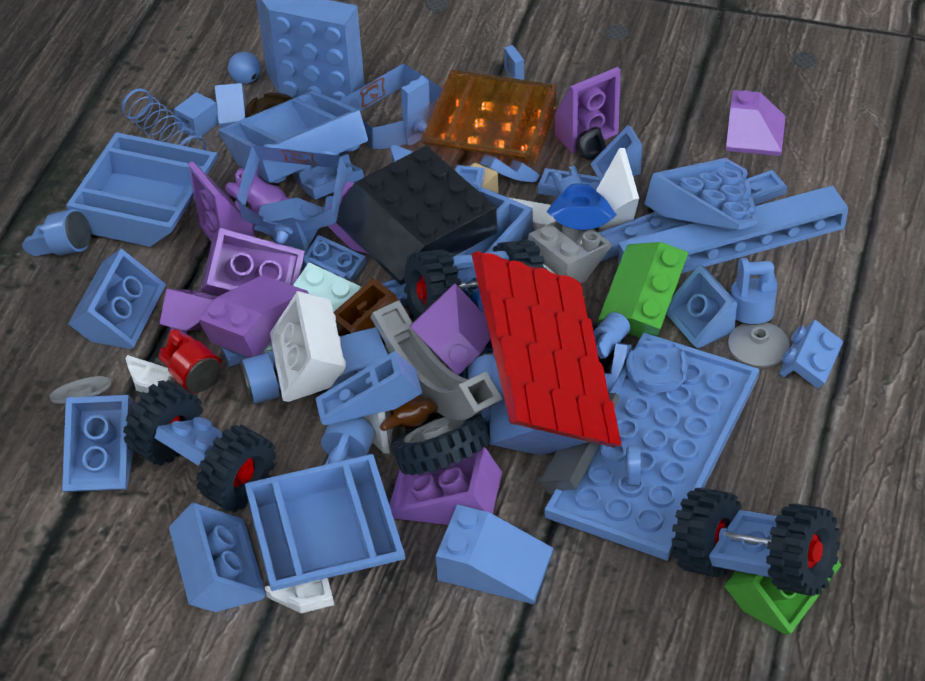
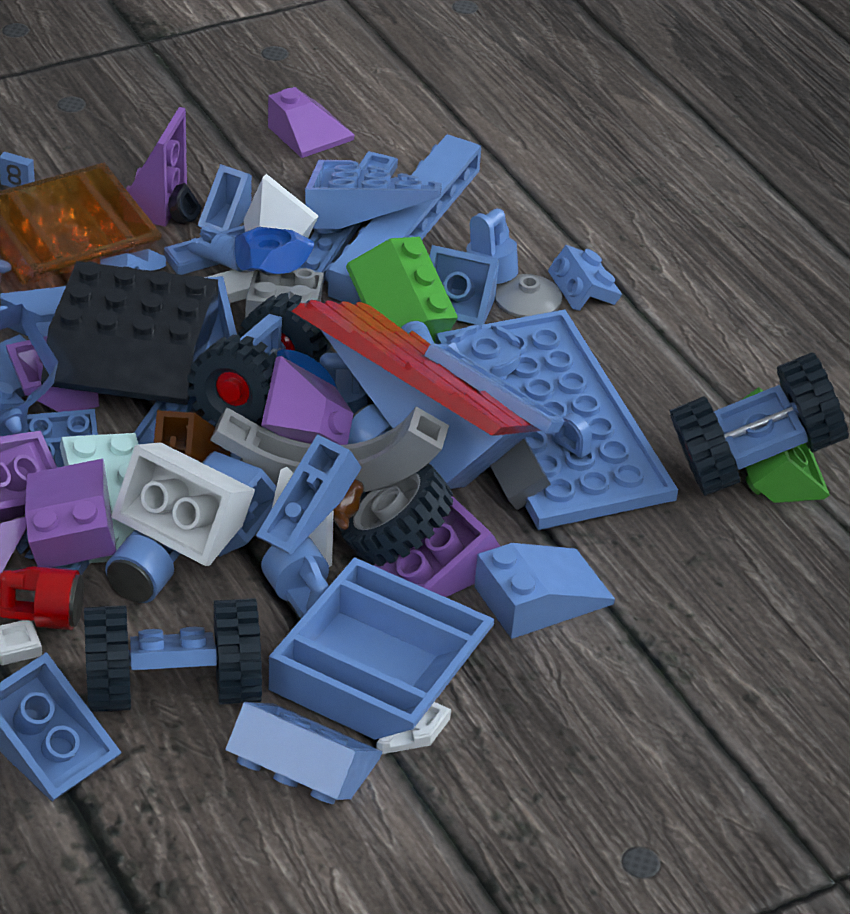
camera: 50 degrees left, 5 degrees down
(581, 394) = (503, 392): none -> medium blue tile

